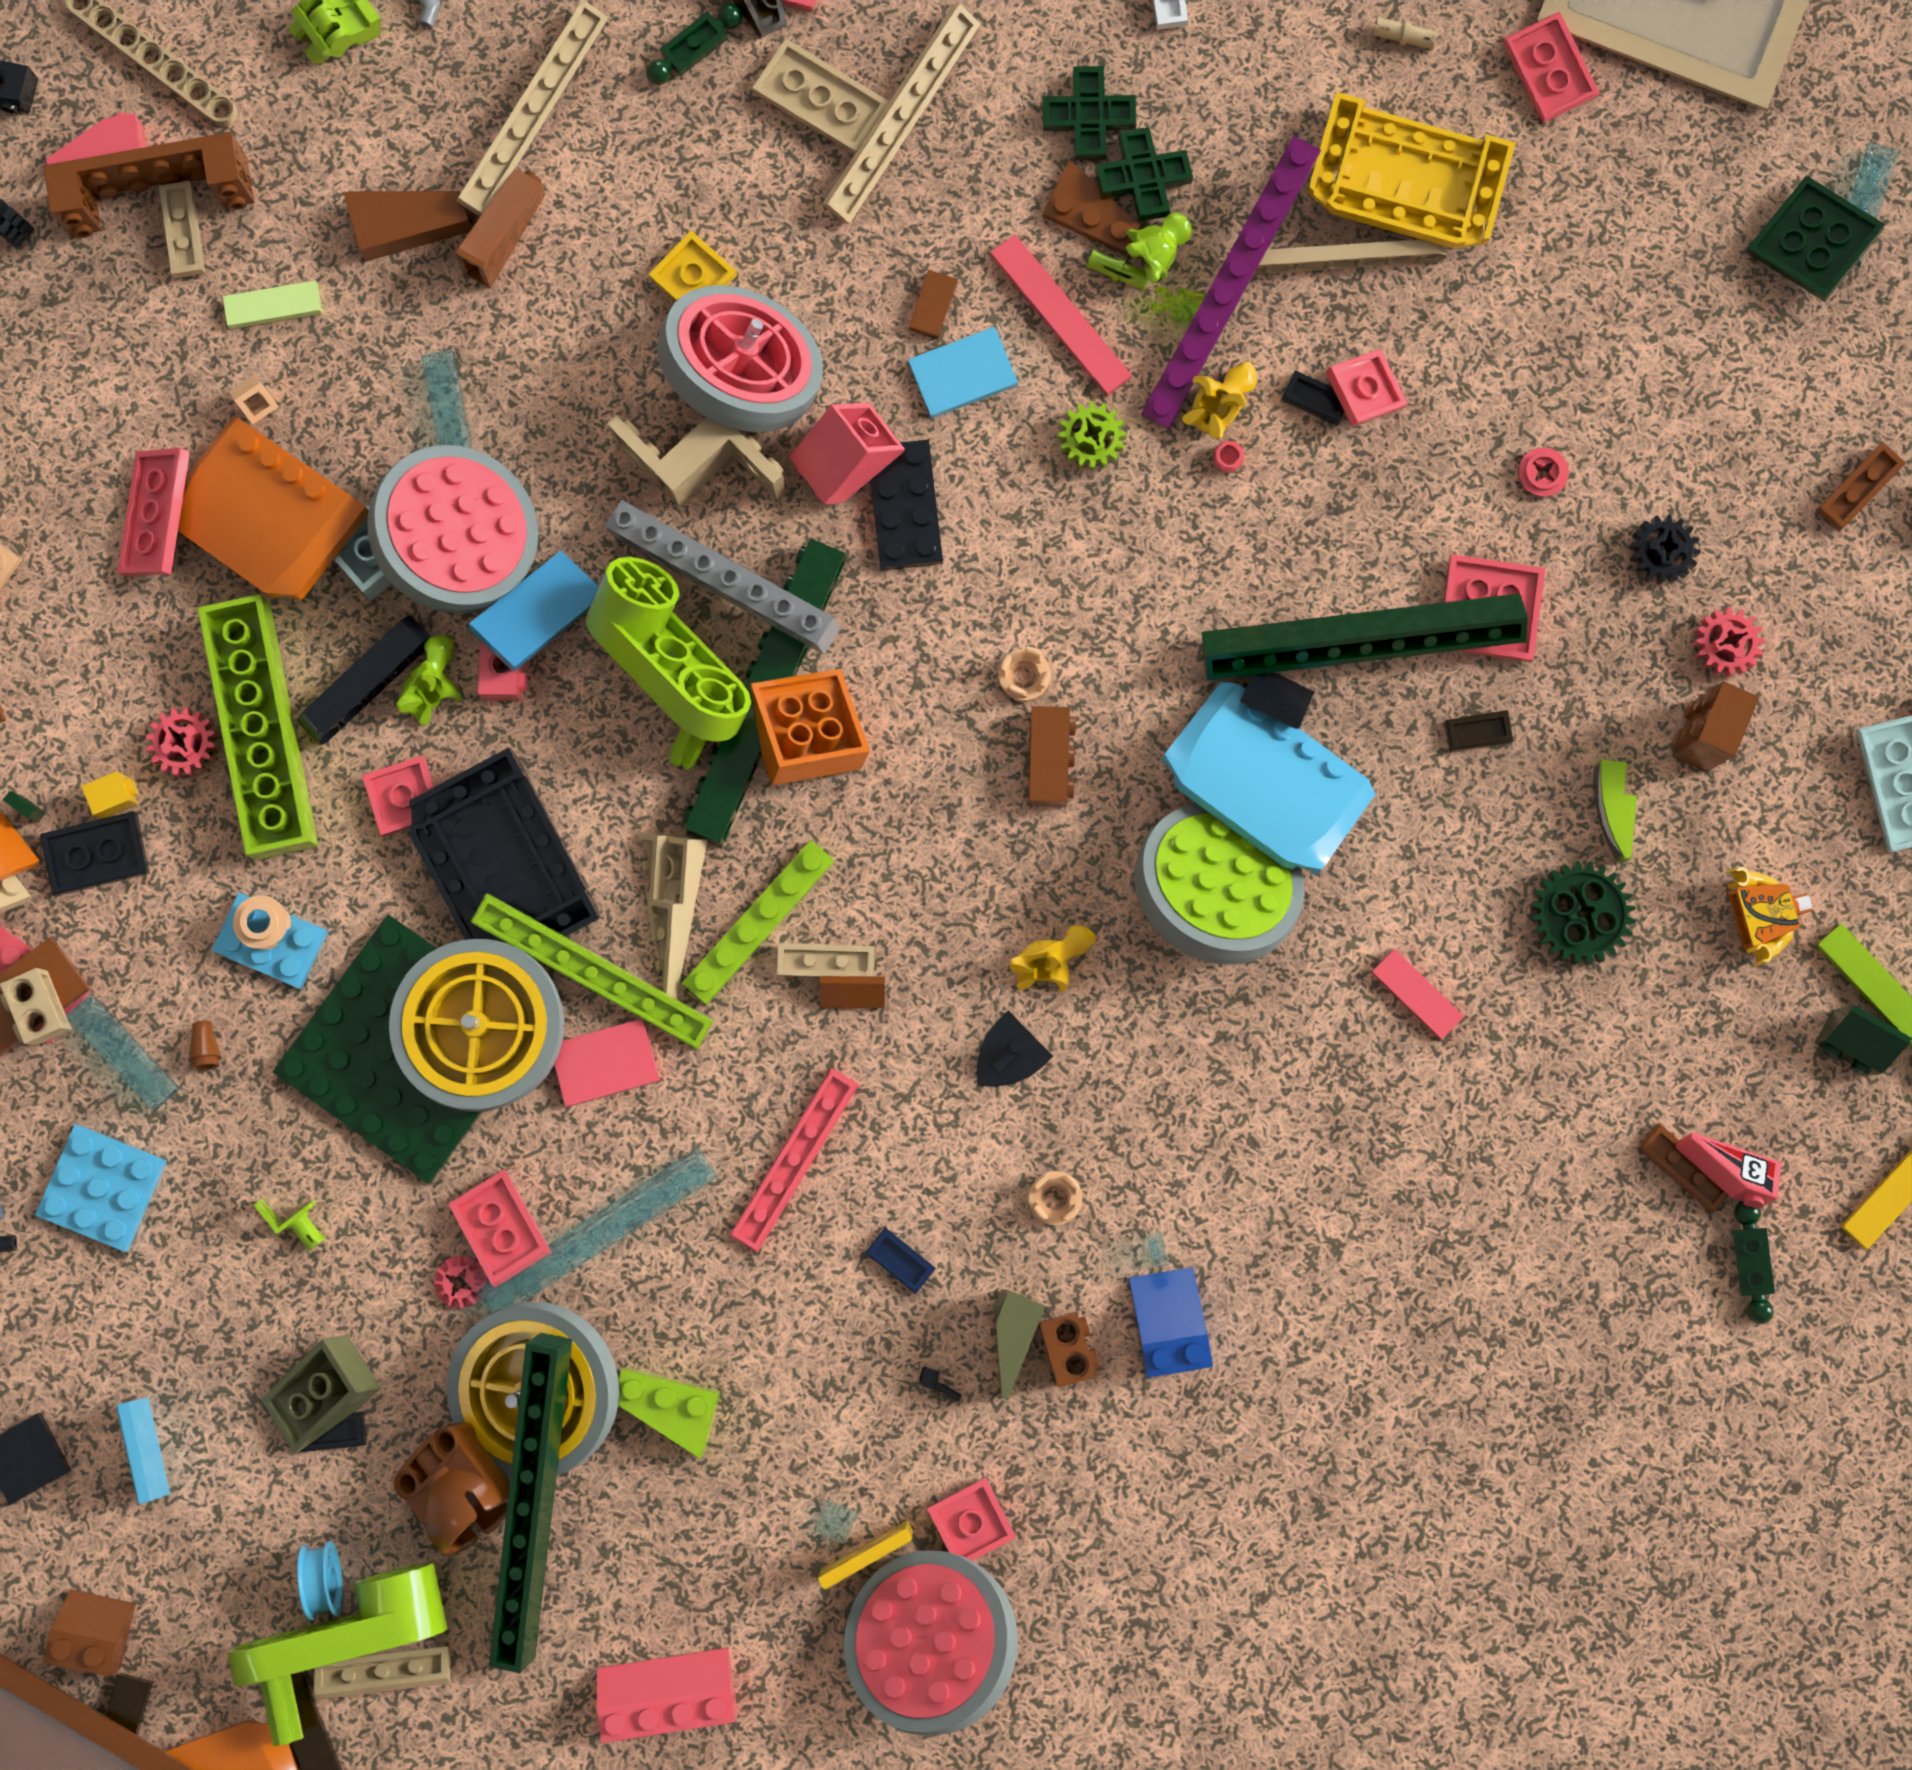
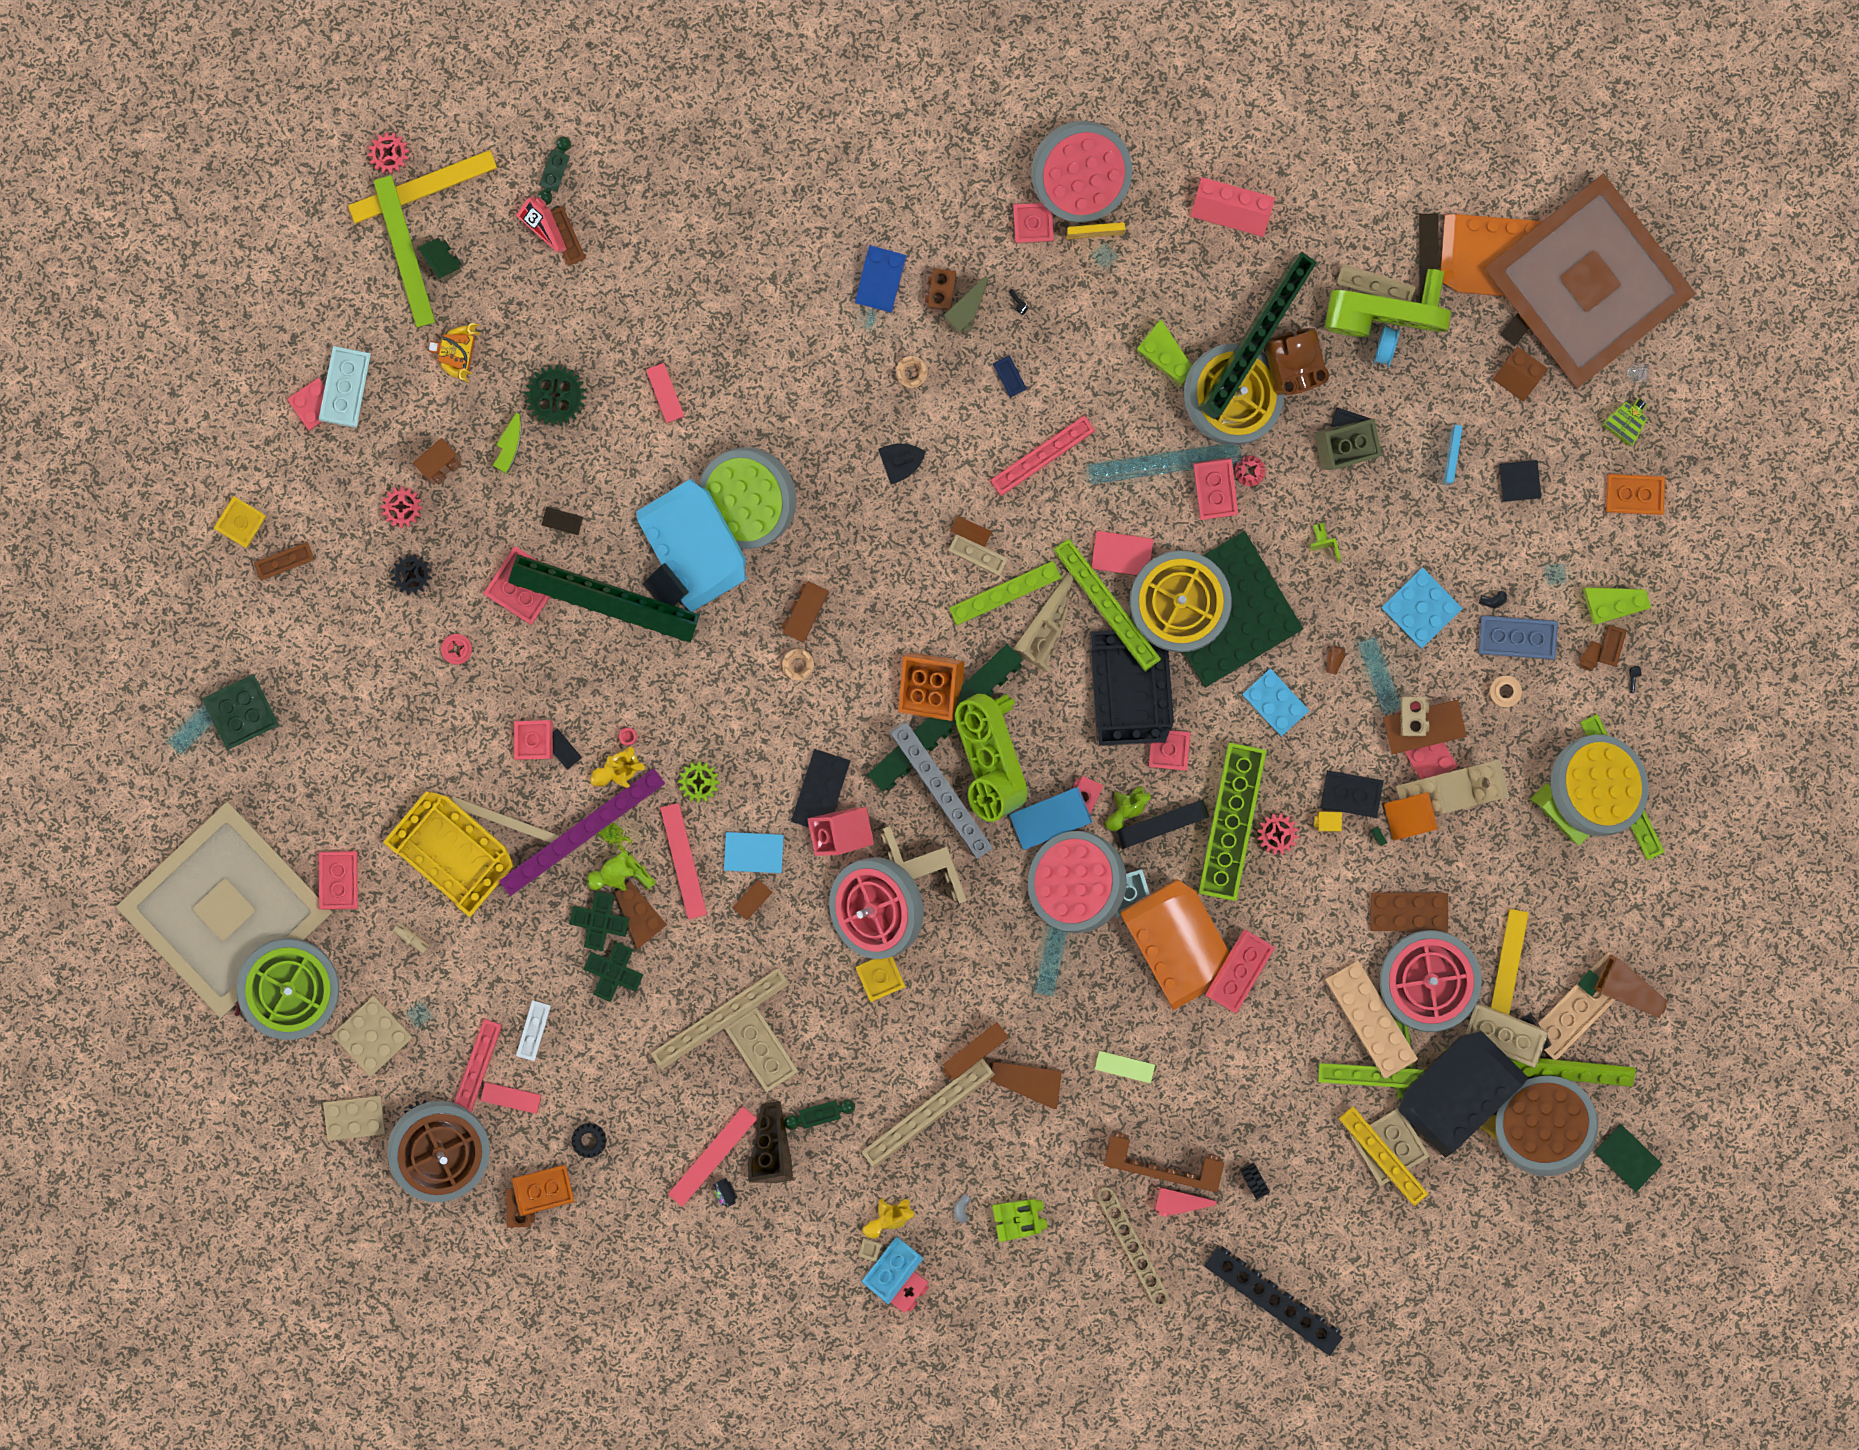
camera: 150 degrees left, 5 degrees up
(182, 229) = (1157, 1133): tan plate -> none
(257, 407) = (1157, 1012): light nougat plate -> none
(279, 922) = (1263, 713): light nougat piece -> none
(1049, 958) = (856, 501): yellow animal -> none

